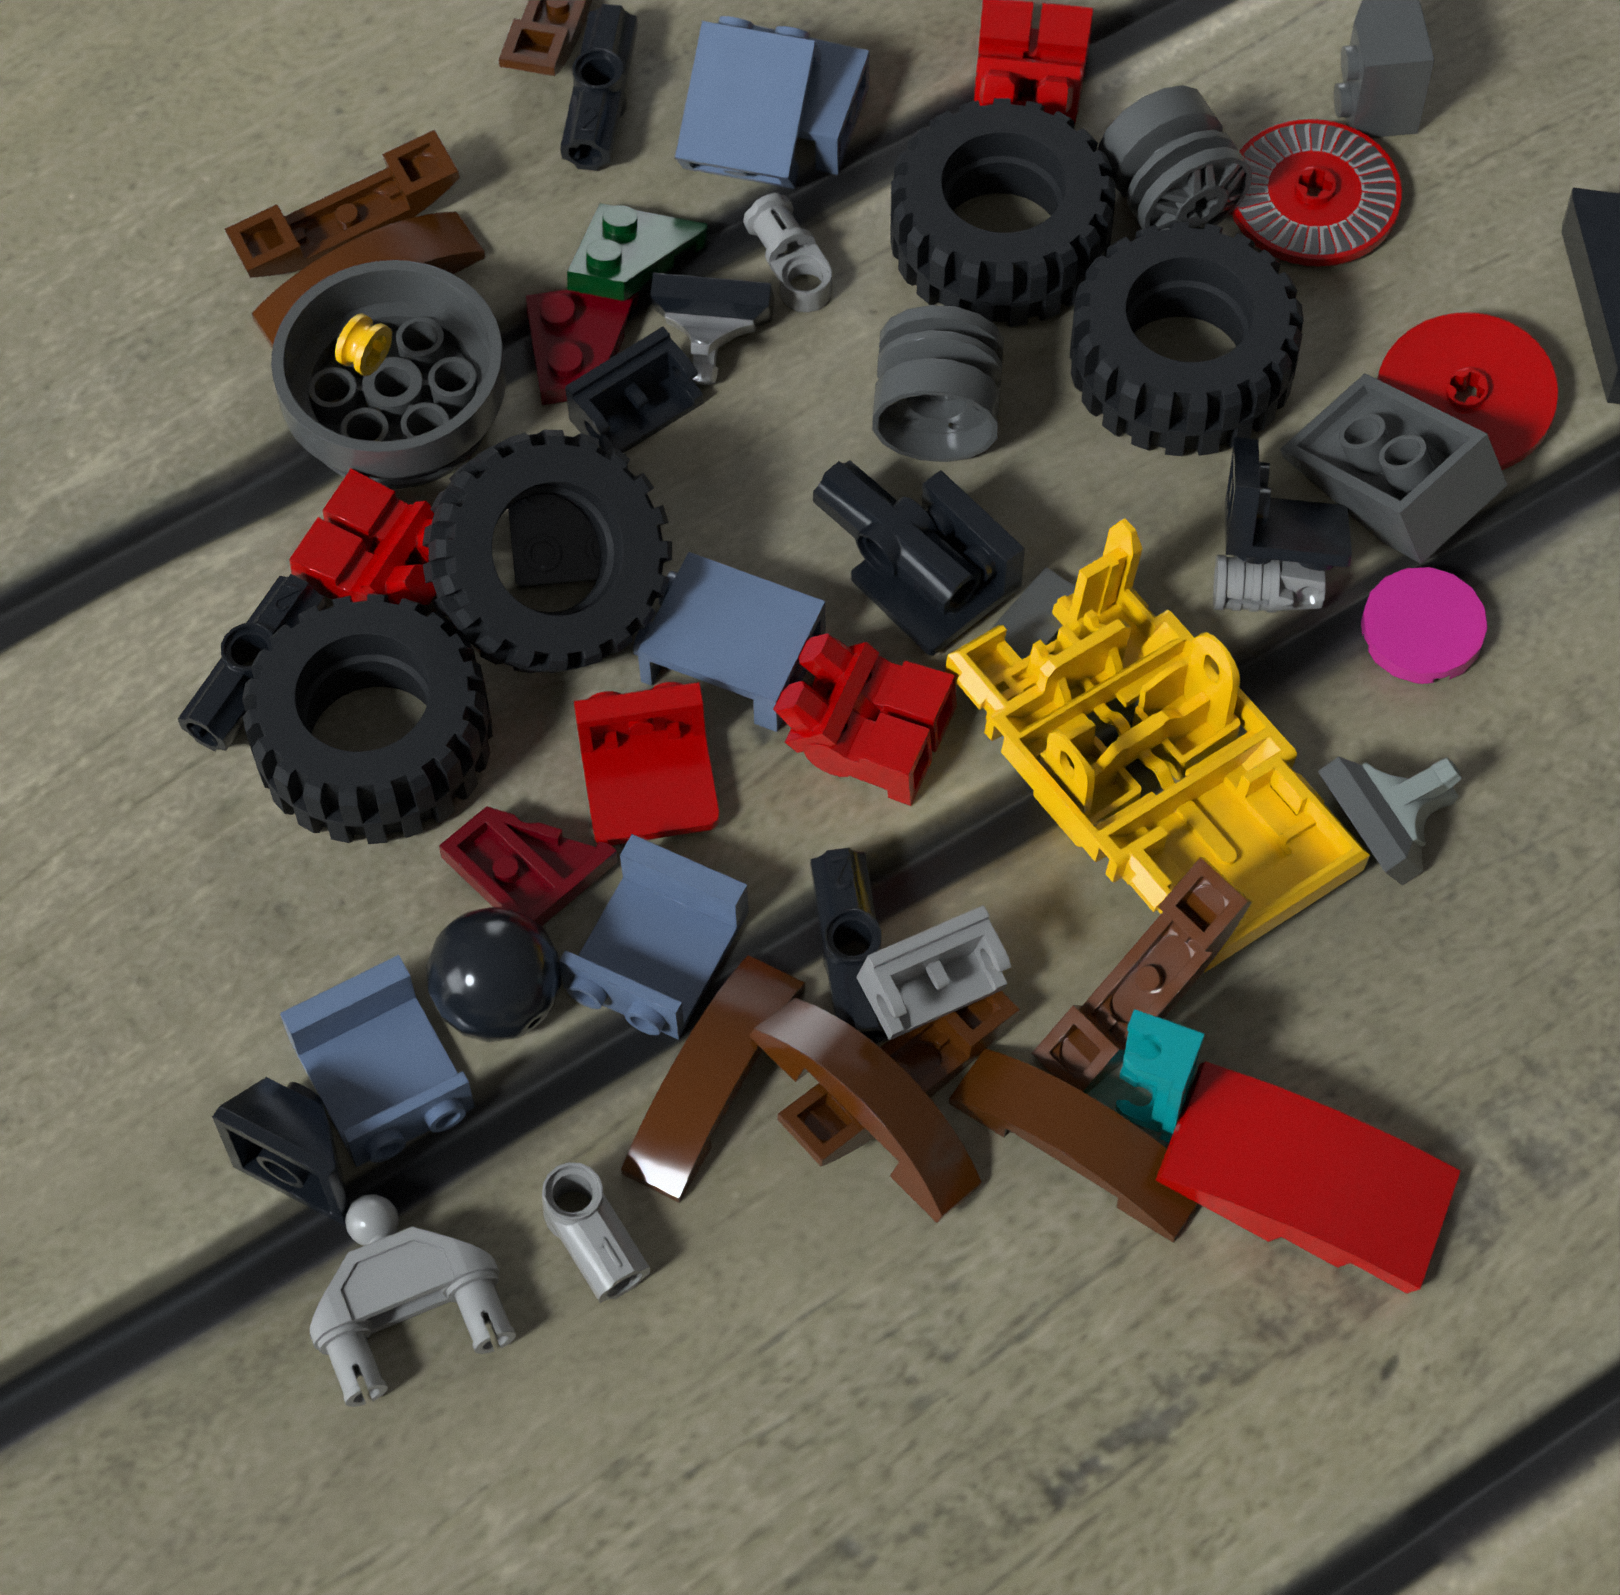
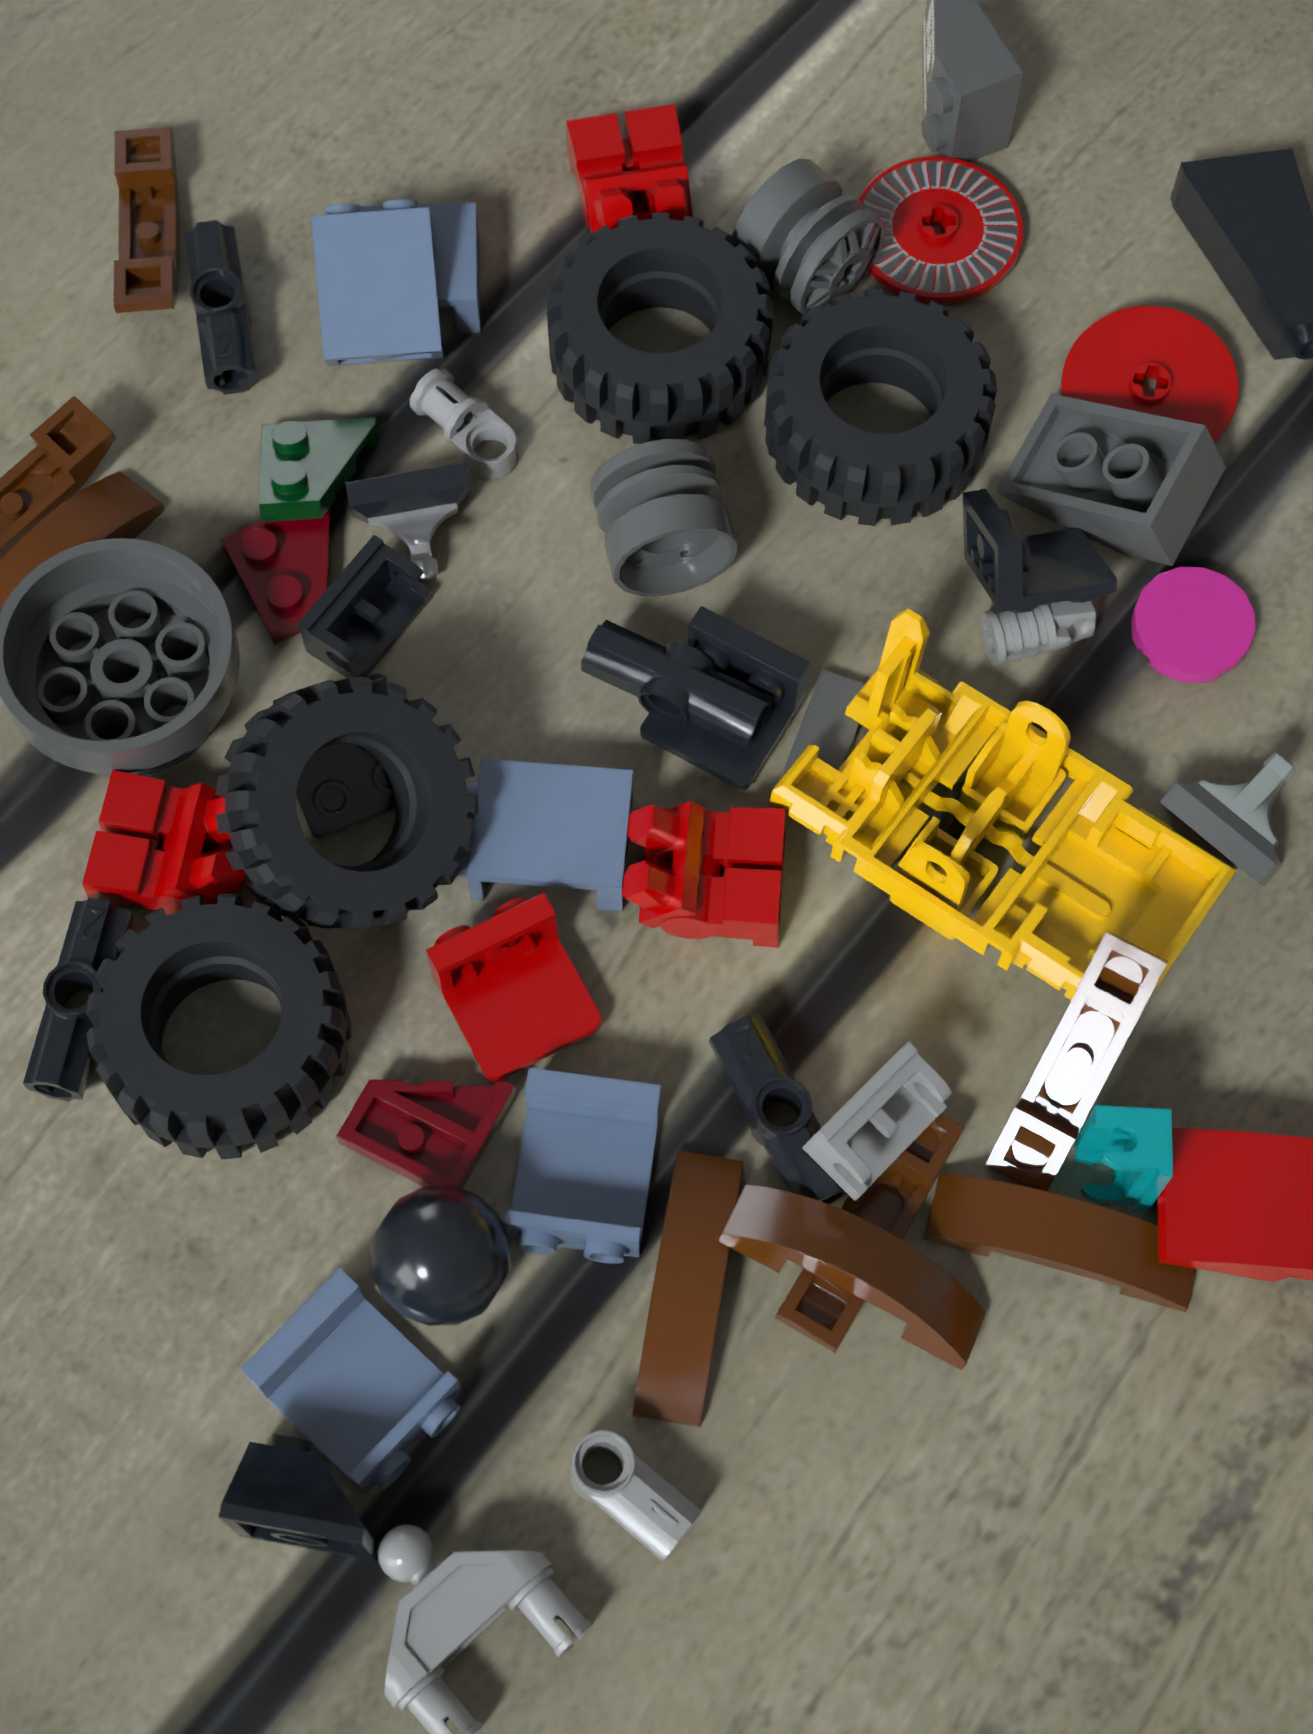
camera: 20 degrees left, 5 degrees up
(363, 344) = (87, 642): yellow bush -> none

